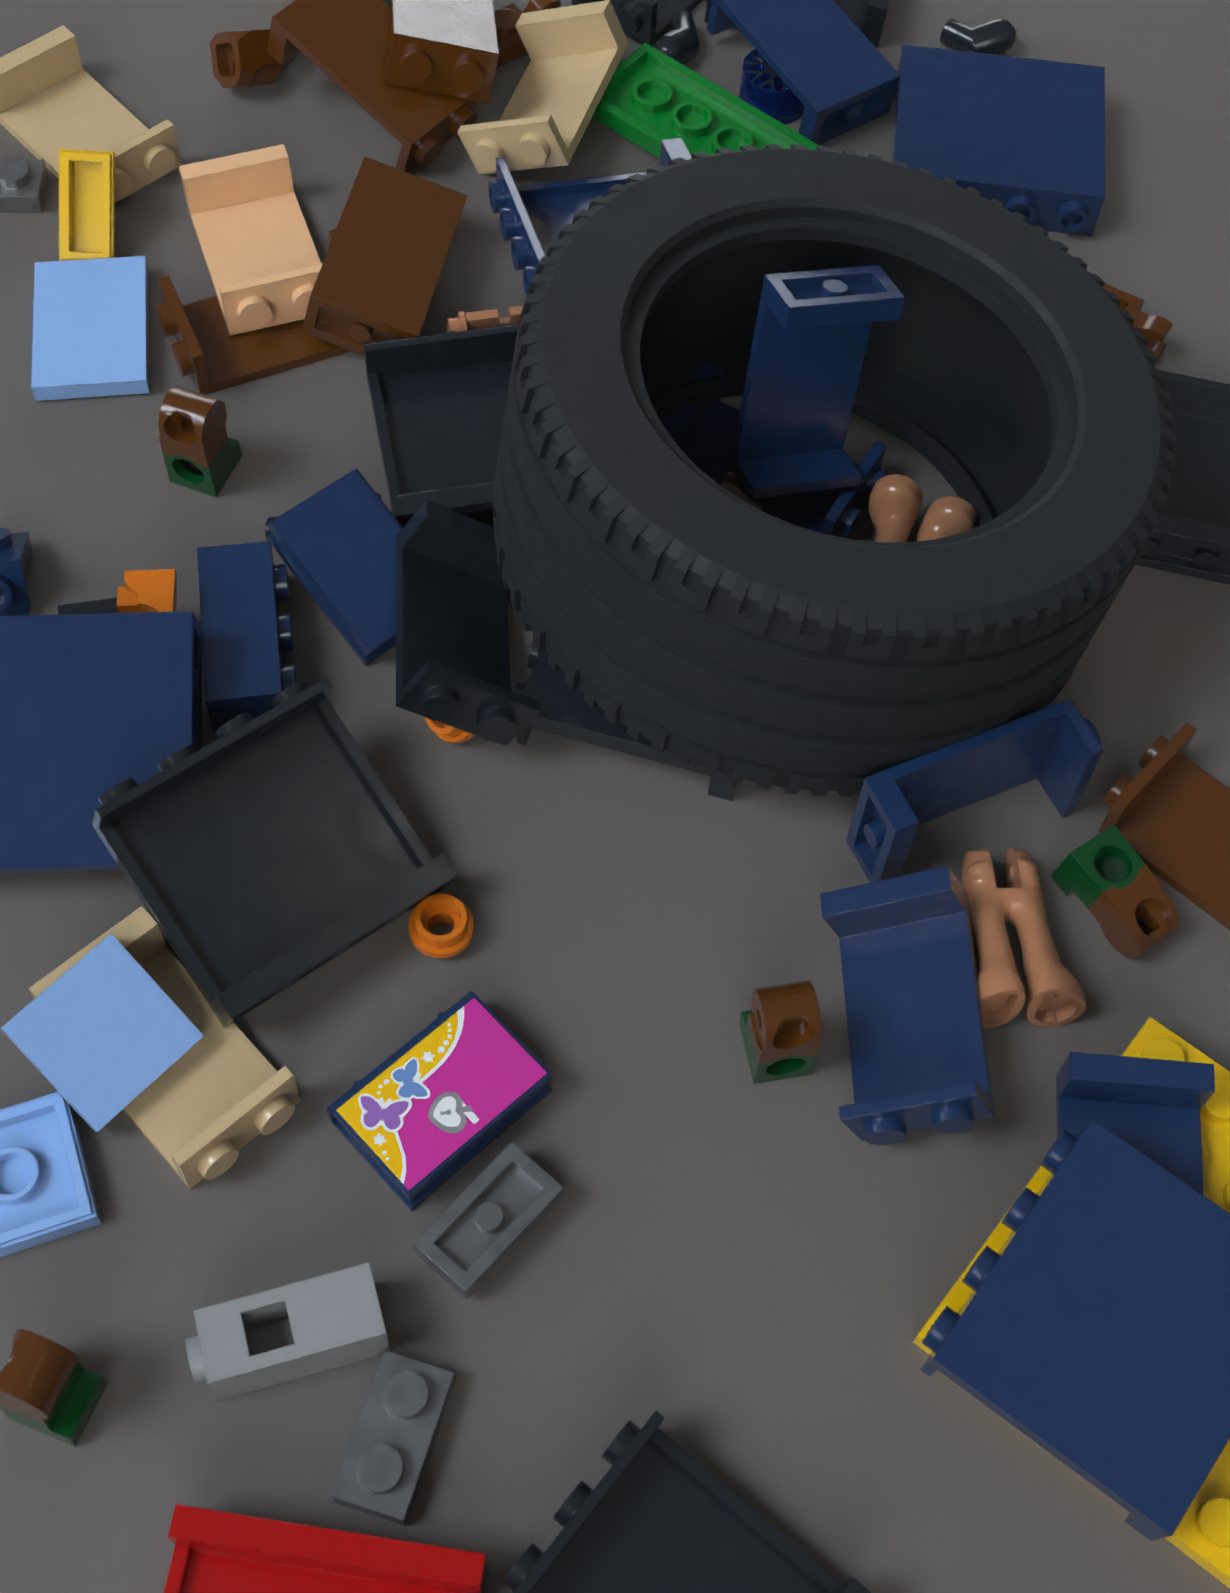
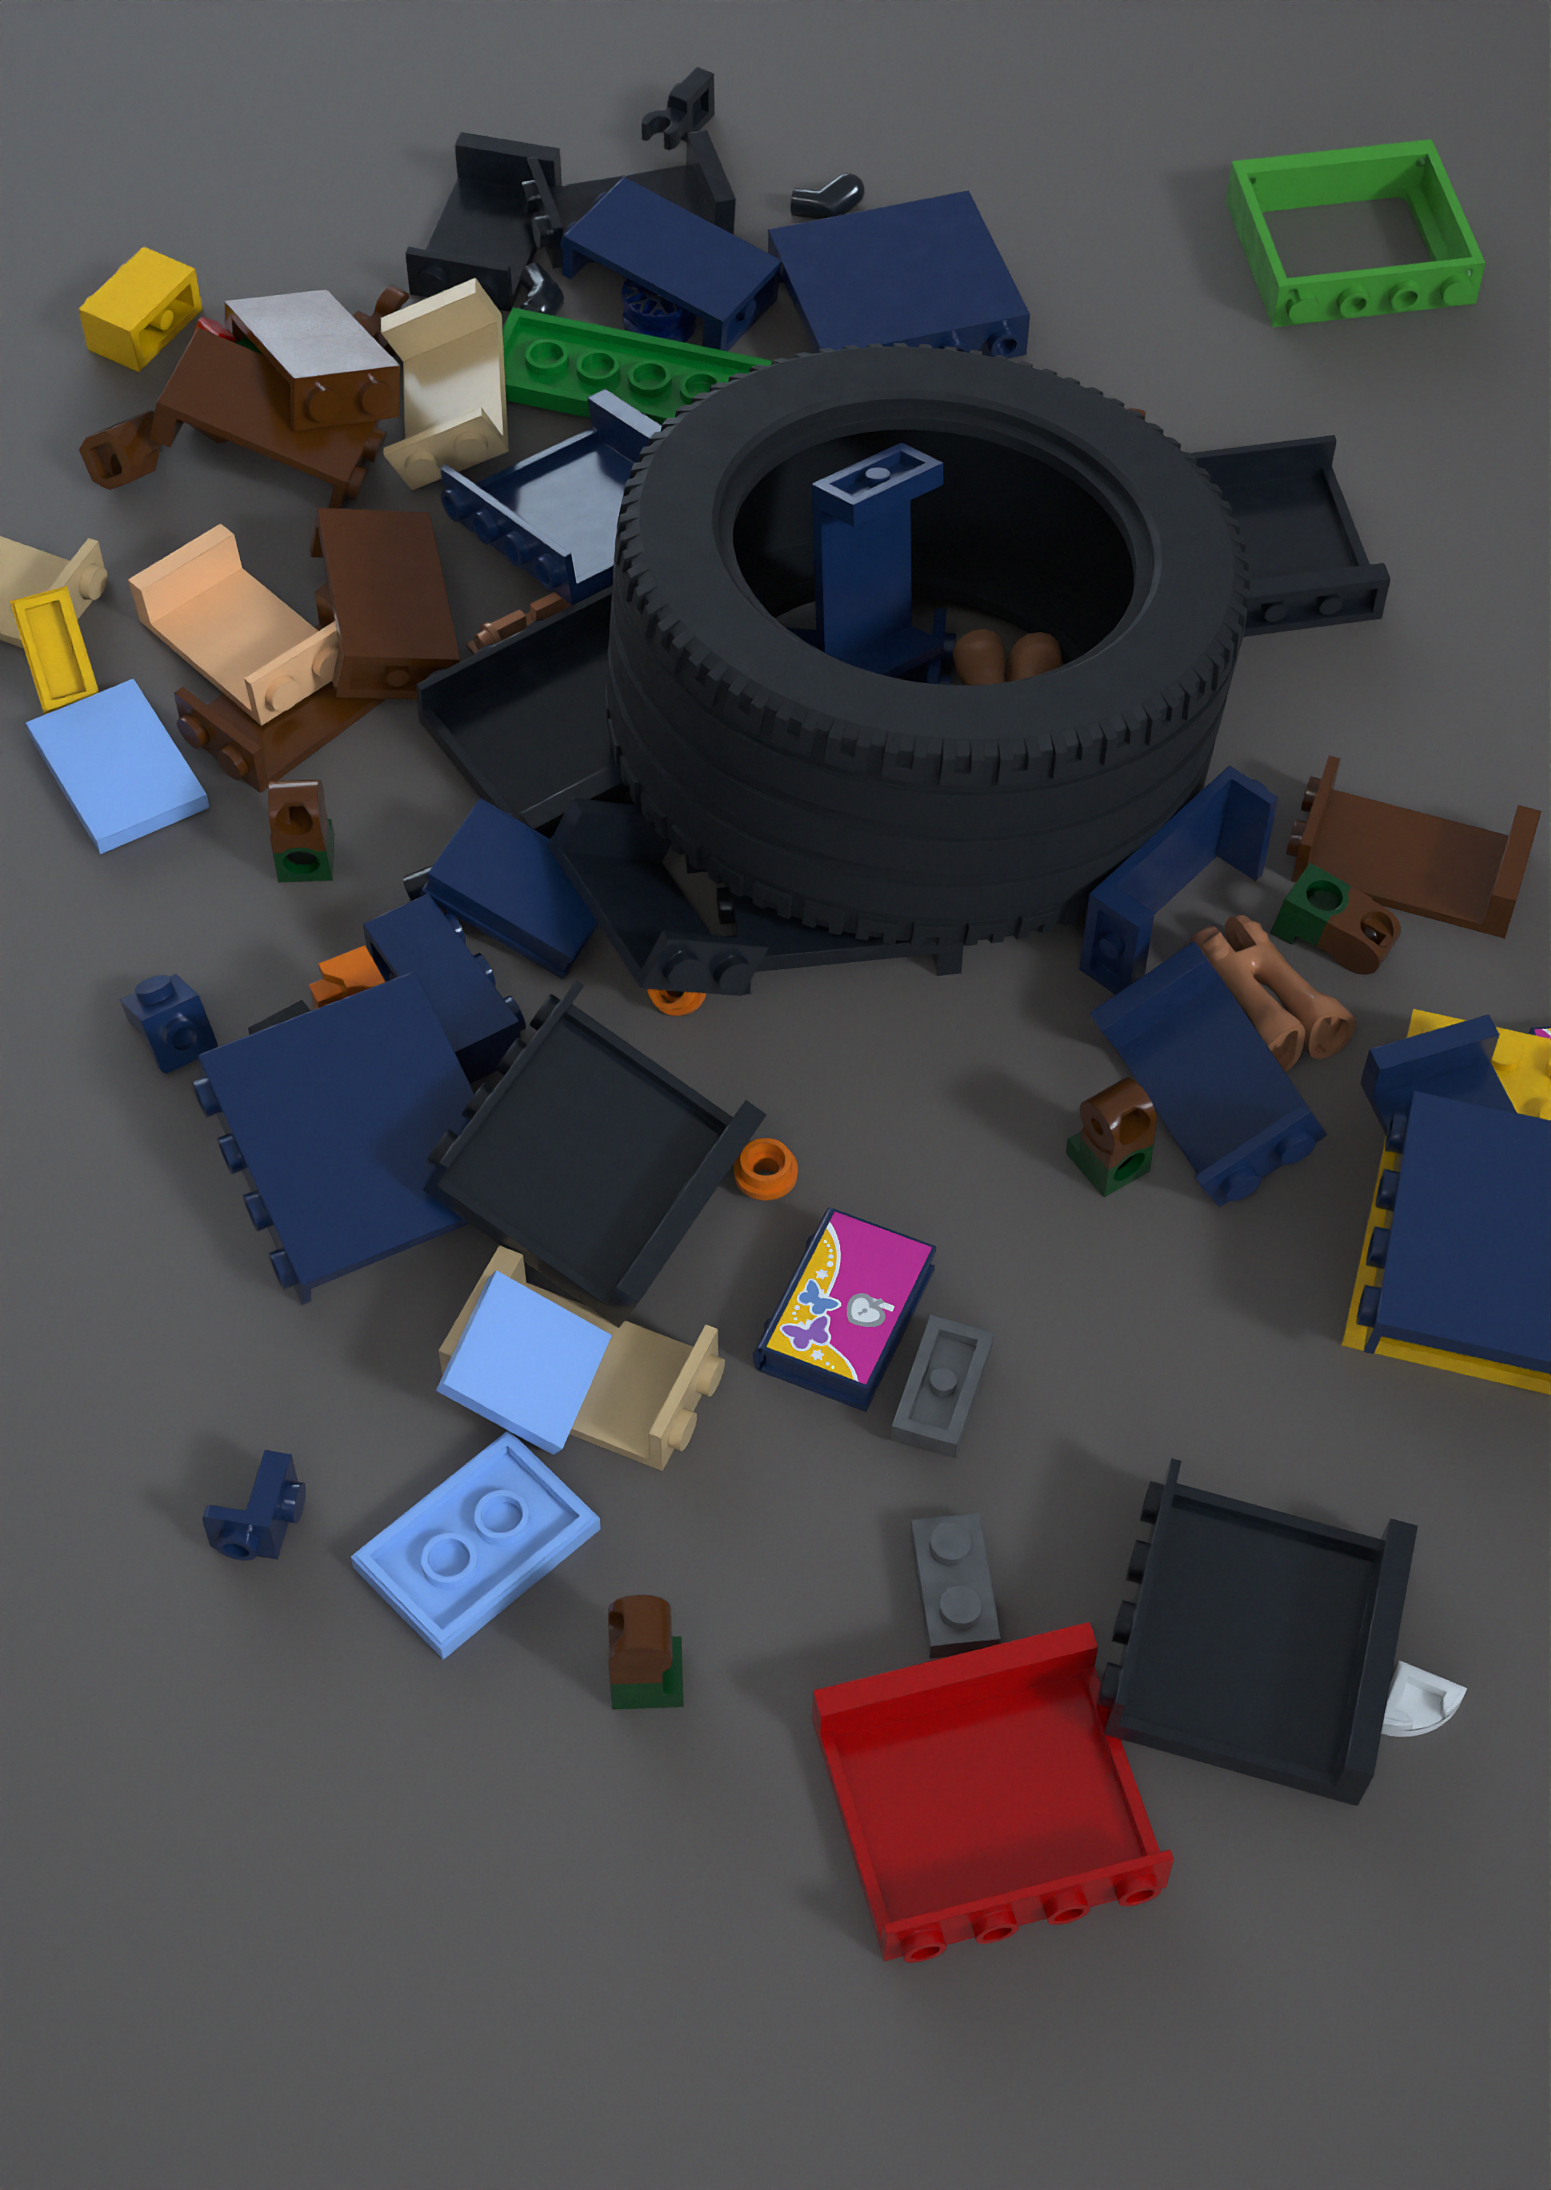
camera: 20 degrees left, 5 degrees down
(287, 1332) = (825, 1536): light grey brick -> none

